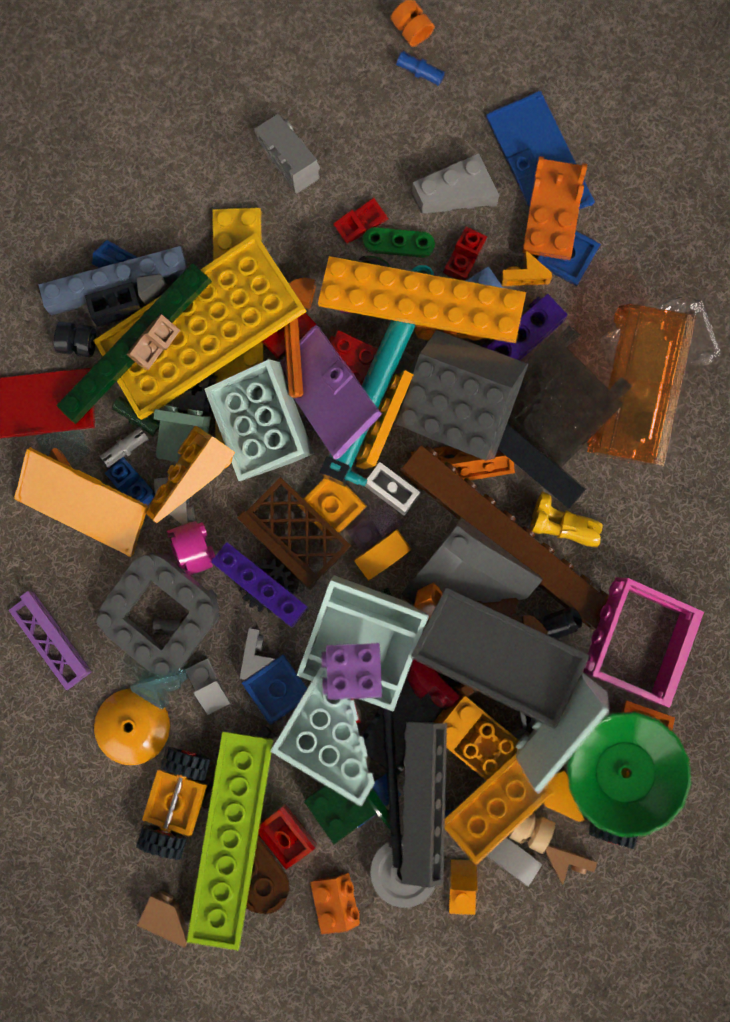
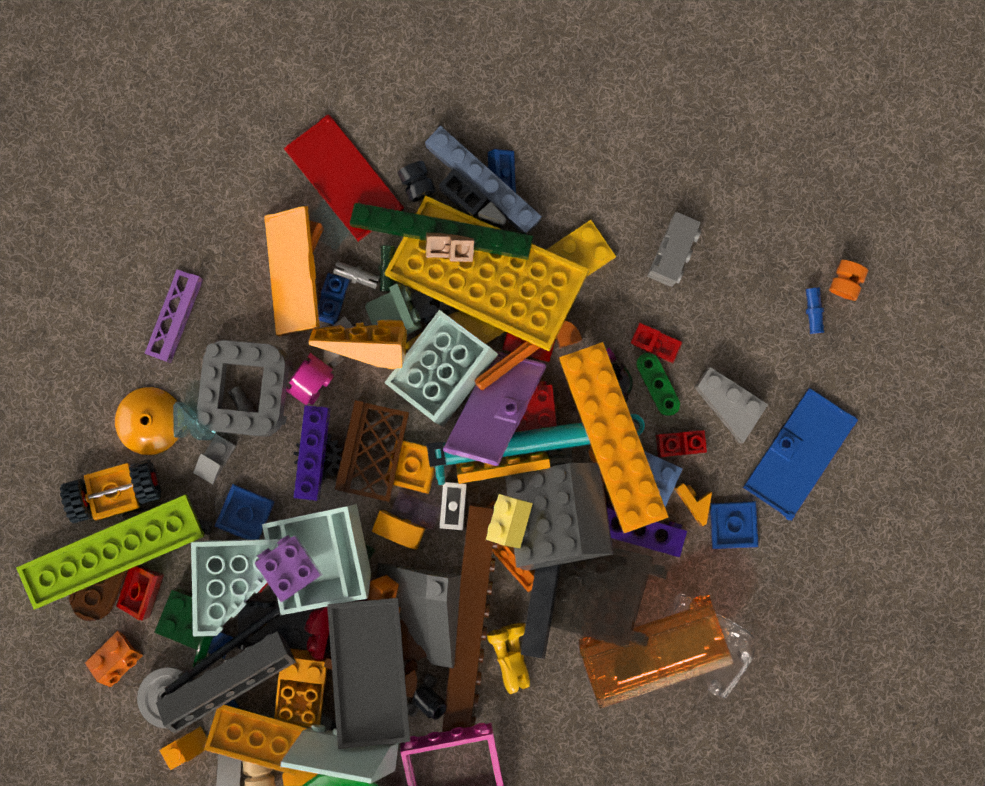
camera: 50 degrees right, 5 degrees up
(164, 918) = (23, 539): medium nougat slope -> none
(252, 663) = (253, 482): light grey slope -> none
(438, 438) = (509, 521): none -> light yellow brick
(554, 208) = (763, 492): orange hinge -> none

